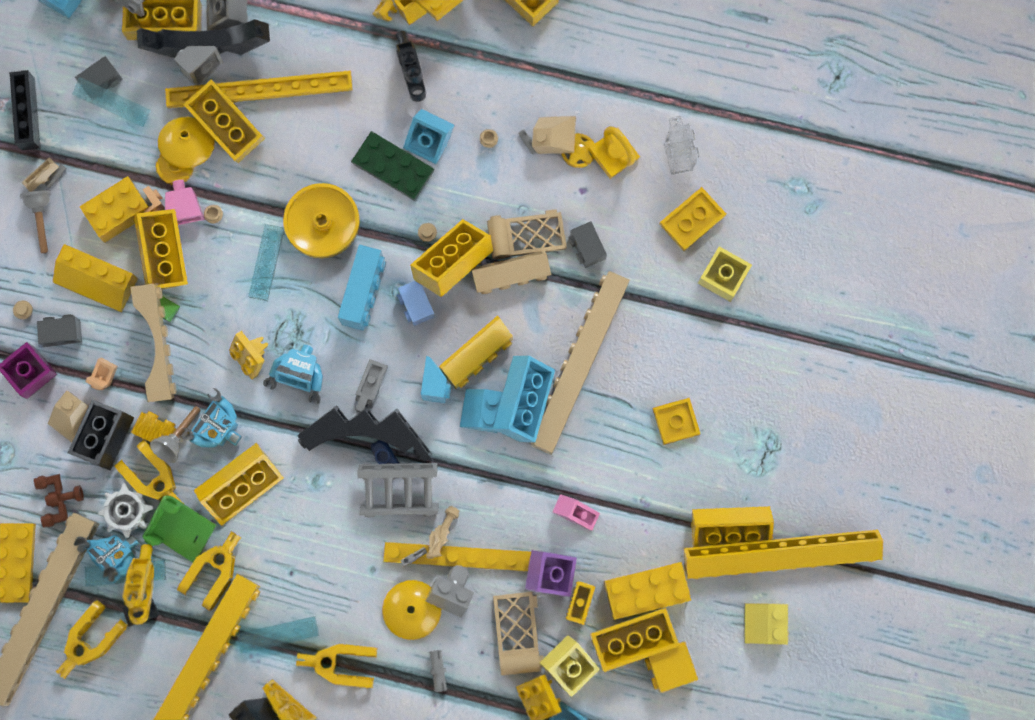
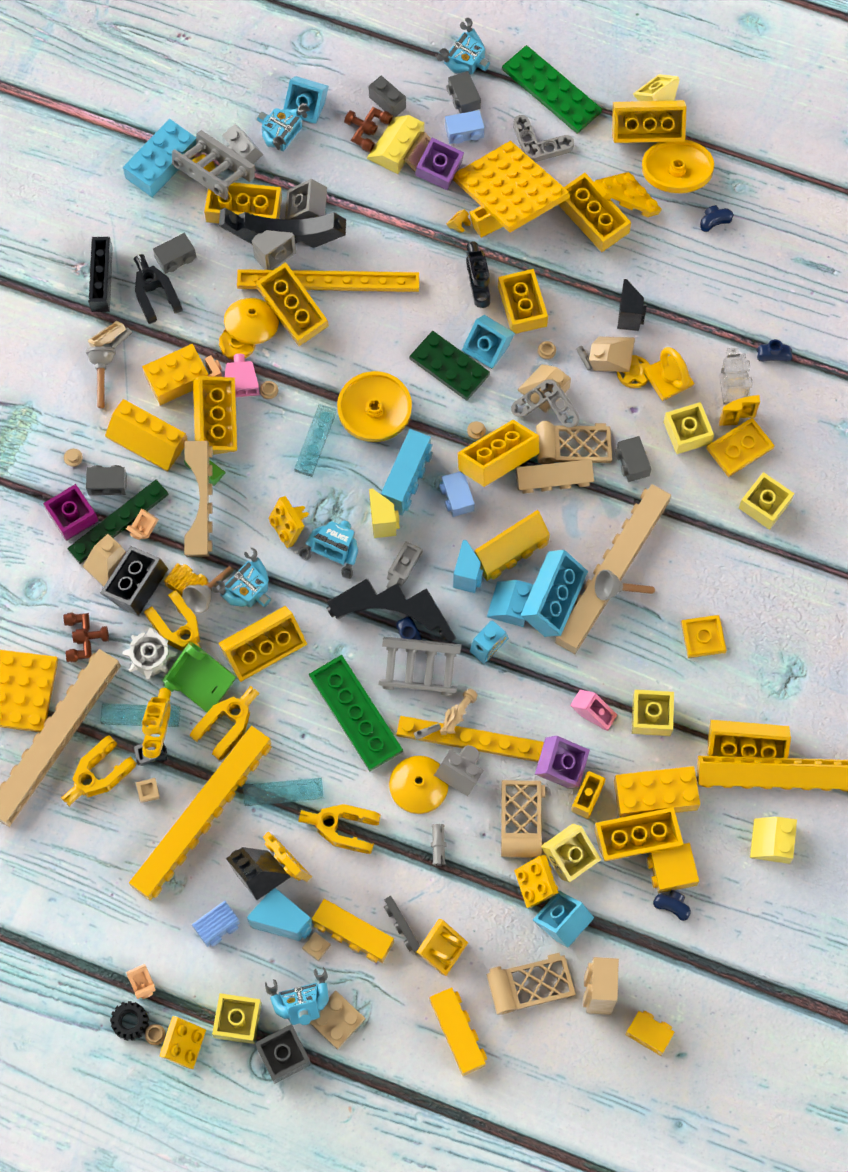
camera: 10 degrees right, 10 degrees down
(70, 119) = (159, 280): none -> black piece
(77, 371) = (118, 520): none -> dark green plate
(109, 554) = (128, 693): torso -> none
(111, 102) = (185, 275): clear light blue plate -> none
(142, 651) = (147, 790): none -> tan plate
(340, 544) = (355, 713): none -> green plate
(343, 337) = (384, 517): none -> light yellow slope
(458, 90) = (522, 301): none -> yellow brick
(464, 455) = (490, 640): none -> medium azure torso
(491, 177) = (544, 373): none -> tan slope
(499, 192) = (551, 397): none -> light grey beam
(569, 85) = (631, 309): none -> black slope
(577, 385) = (608, 585): none -> light grey piece
(634, 509) = (652, 712): none -> light yellow brick
(639, 206) = (688, 428): none -> light yellow brick
(675, 701) = (673, 903): none -> dark blue piece
(693, 178) = (740, 408): none -> yellow slope
(716, 114) = (774, 351): none -> dark blue piece

